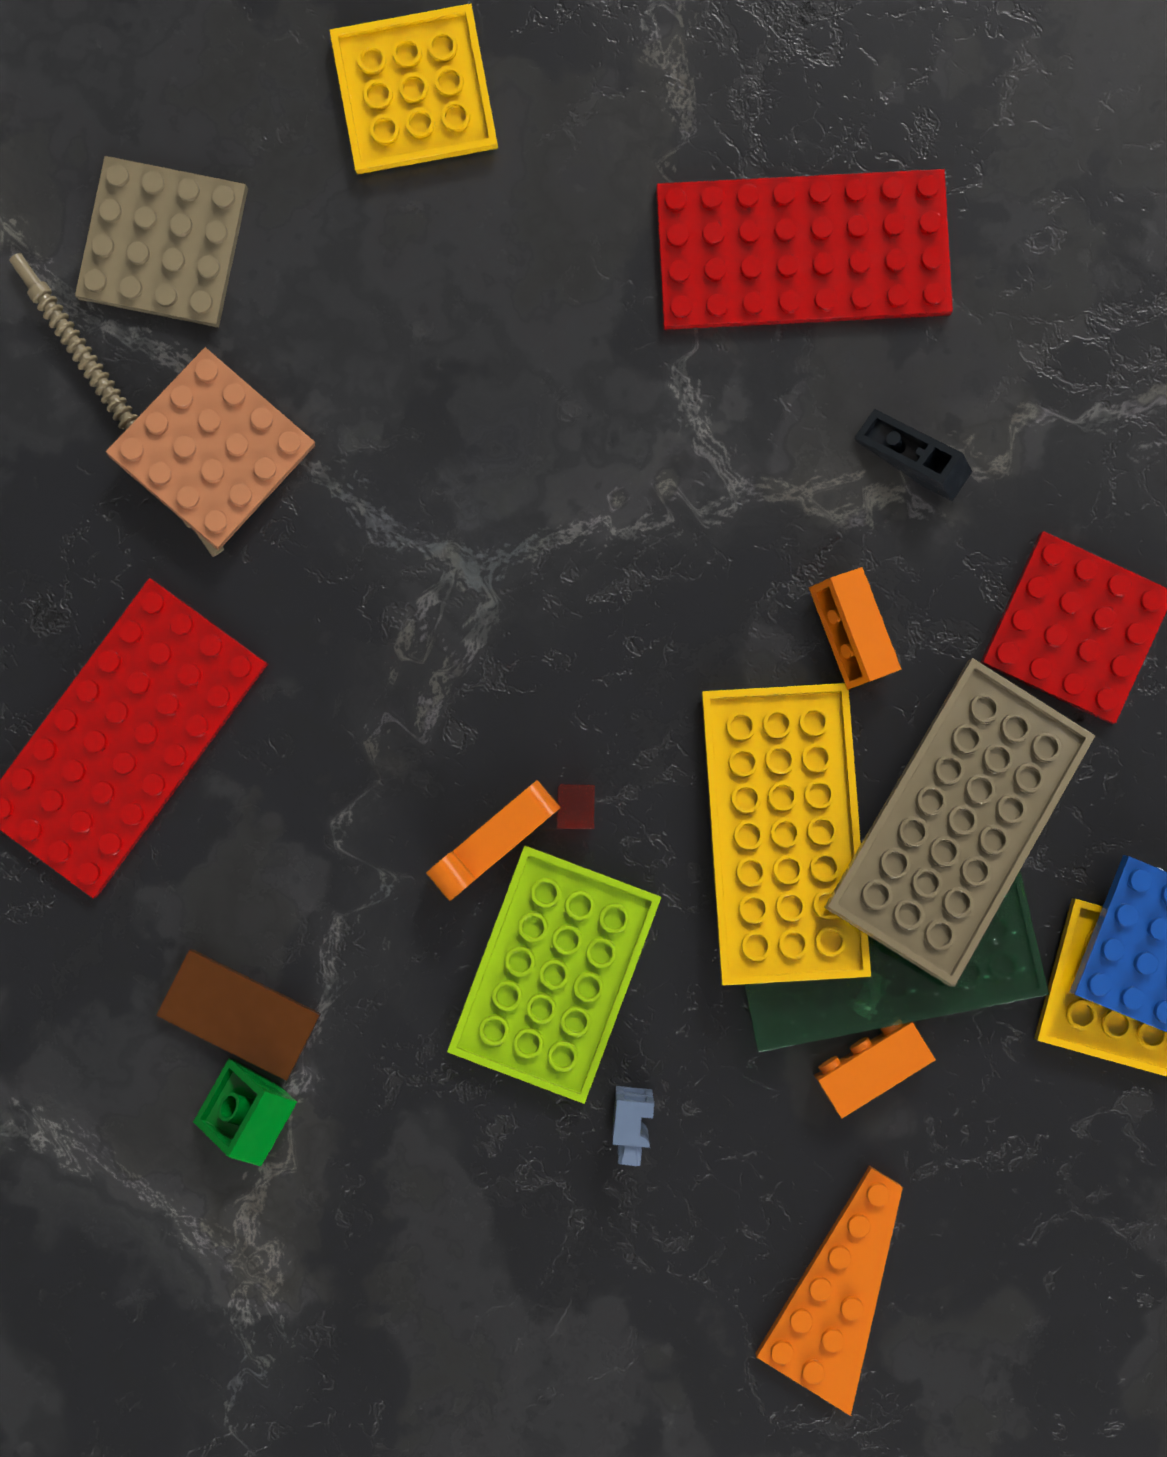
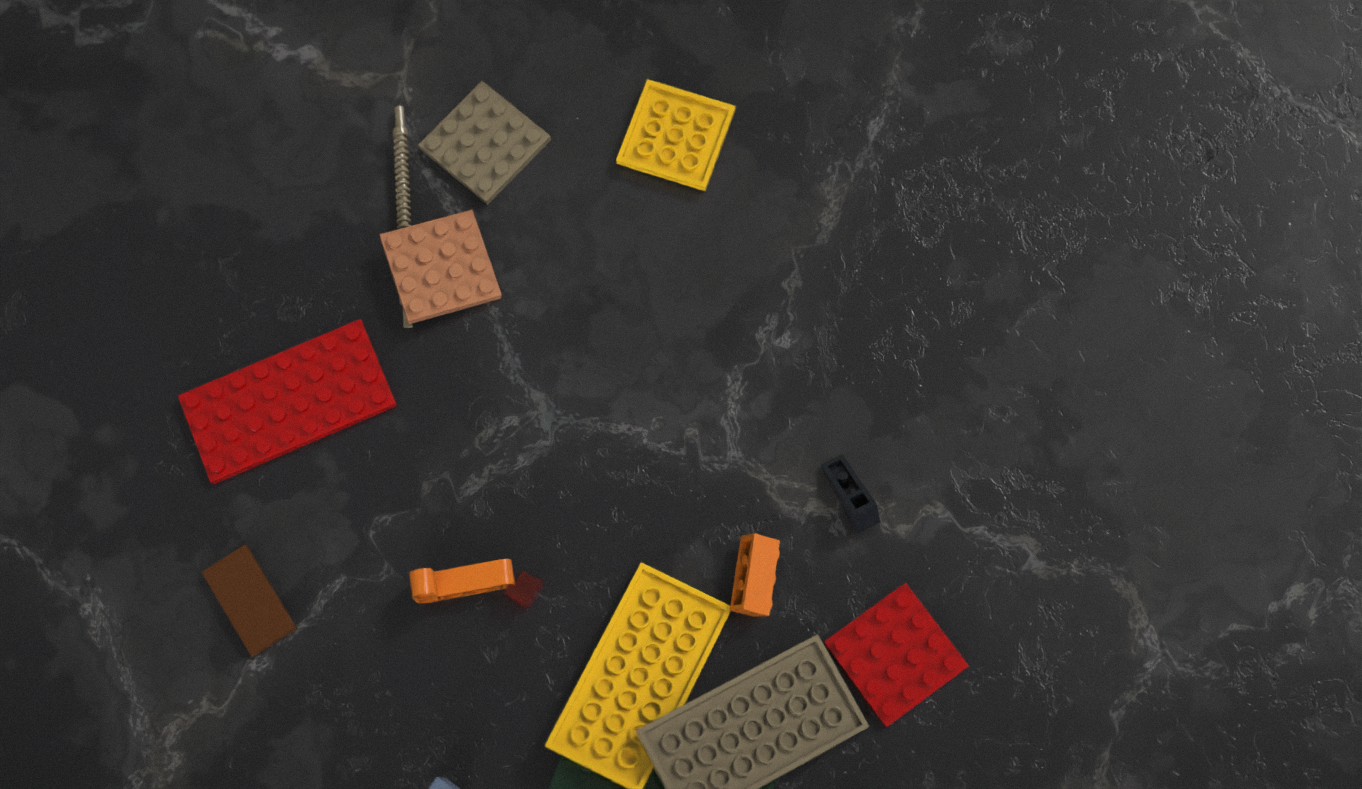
camera: 30 degrees right, 15 degrees down
(244, 1113) = (214, 661): green slope -> none
(554, 974) = (449, 684): lime plate -> none
(804, 249) = (852, 341): red plate -> none

